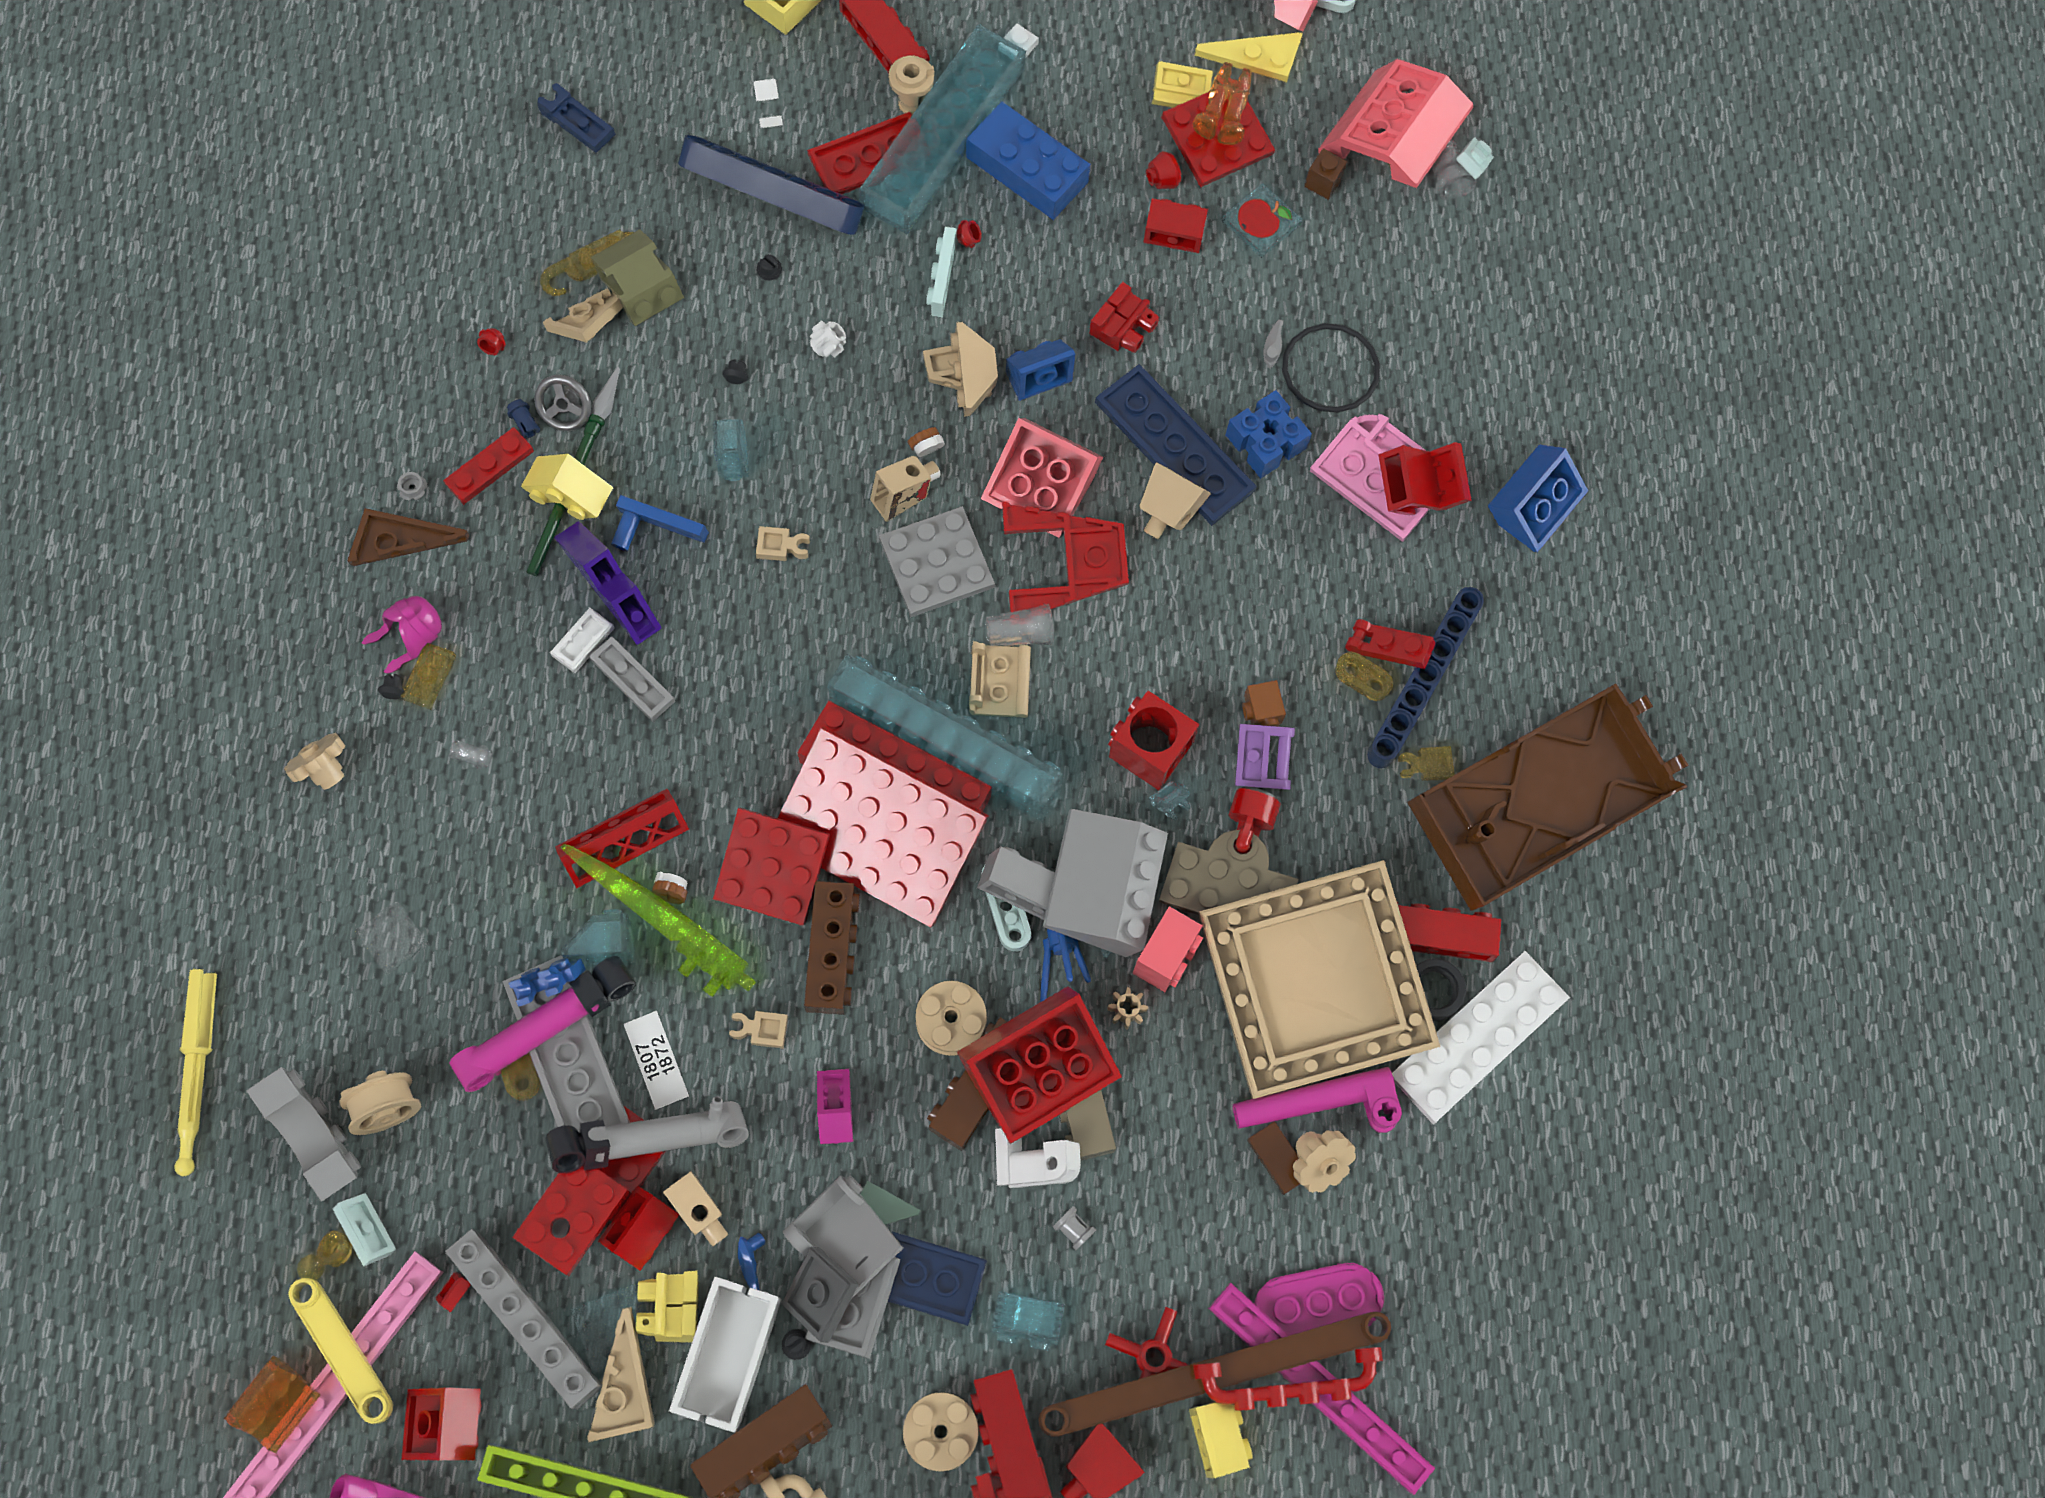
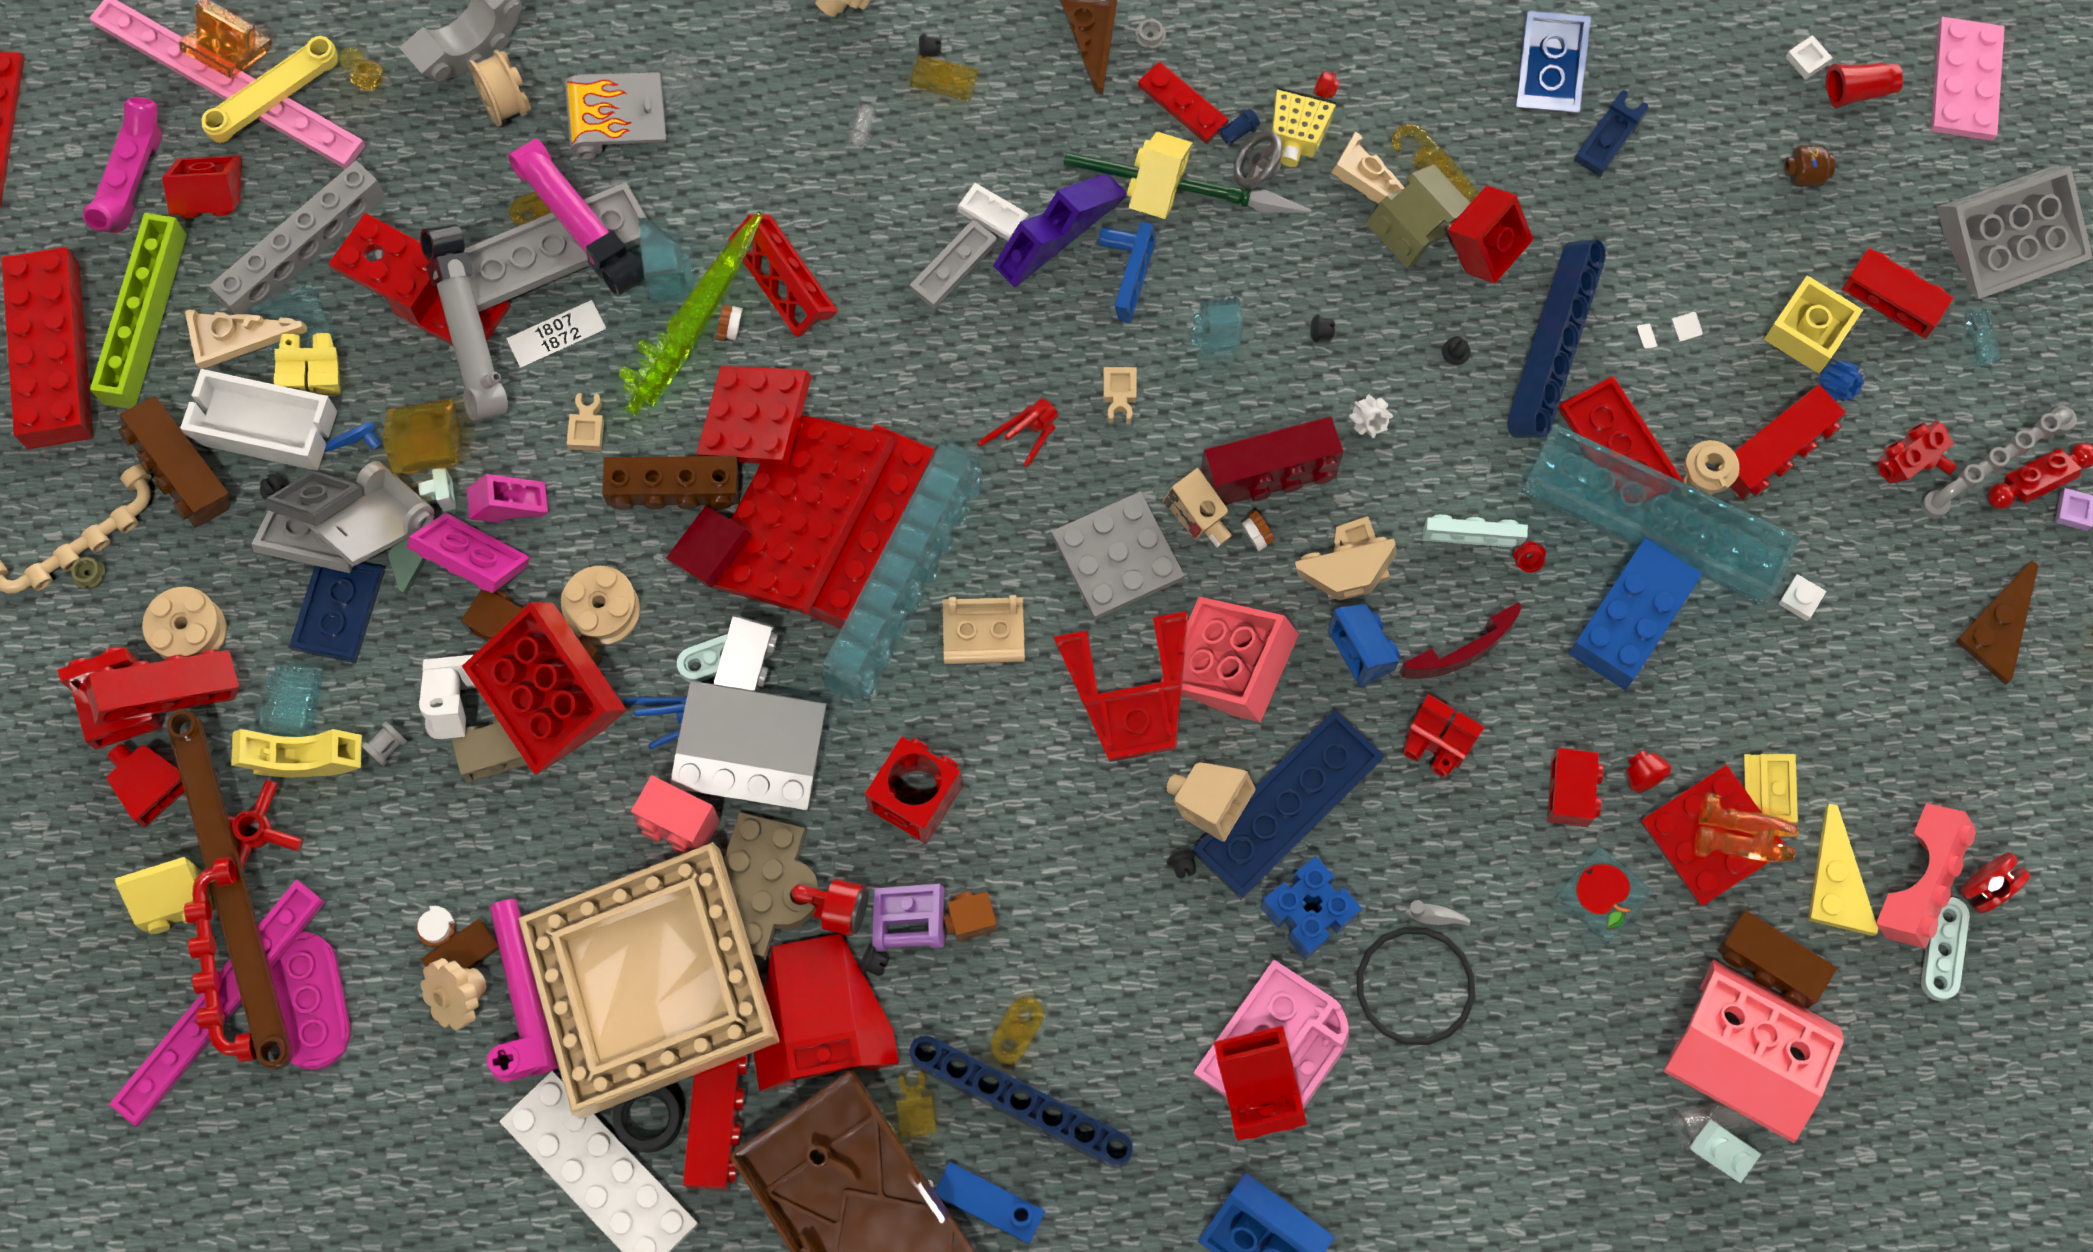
camera: 90 degrees right, 0 degrees up
(364, 1229) = (384, 95): light aqua plate -> none
(417, 626) = (990, 54): dark pink hair -> none
(420, 995) = (611, 111): none -> light grey door
(452, 1291) = (319, 174): red tile -> none
(496, 153) = (1552, 61): none -> slope
(526, 365) = (1300, 123): none -> light yellow torso
(549, 979) = (615, 209): blue plate -> none
(638, 1228) = (381, 329): red brick -> none
(668, 219) = (1490, 234): none -> red brick
(685, 1196) = (403, 377): tan torso -> none
(764, 1182) = (422, 436): none -> clear yellow brick
(799, 616) = (1035, 417): none -> red plant
(817, 1171) = (439, 490): none -> light aqua tile
(868, 413) = (1274, 461): none -> dark red brick
(889, 1141) = (468, 552): none -> dark pink plate
(902, 913) = (708, 546): none -> dark red tile
(1021, 627) = (1040, 645): clear plant -> none
(1033, 264) = (1429, 665): none -> dark red slope
(1083, 1307) = (290, 757): none -> light yellow arch
(1120, 1013) = (609, 778): tan gear -> none
(1169, 797) = (855, 816): clear light blue tile -> none
(1222, 532) = (1182, 862): none -> black piece
(1253, 1181) = (435, 926): none -> white piece
(1299, 792) = (871, 962): none -> black piece
(1322, 104) = (1776, 960): none -> reddish brown brick
(1325, 174) = (1675, 965): reddish brown brick -> none
(1347, 831) = (821, 1015): none -> red wedge
(1391, 644) = (1054, 1058): red plate -> none
(1508, 708) = (989, 1203): none -> blue piece

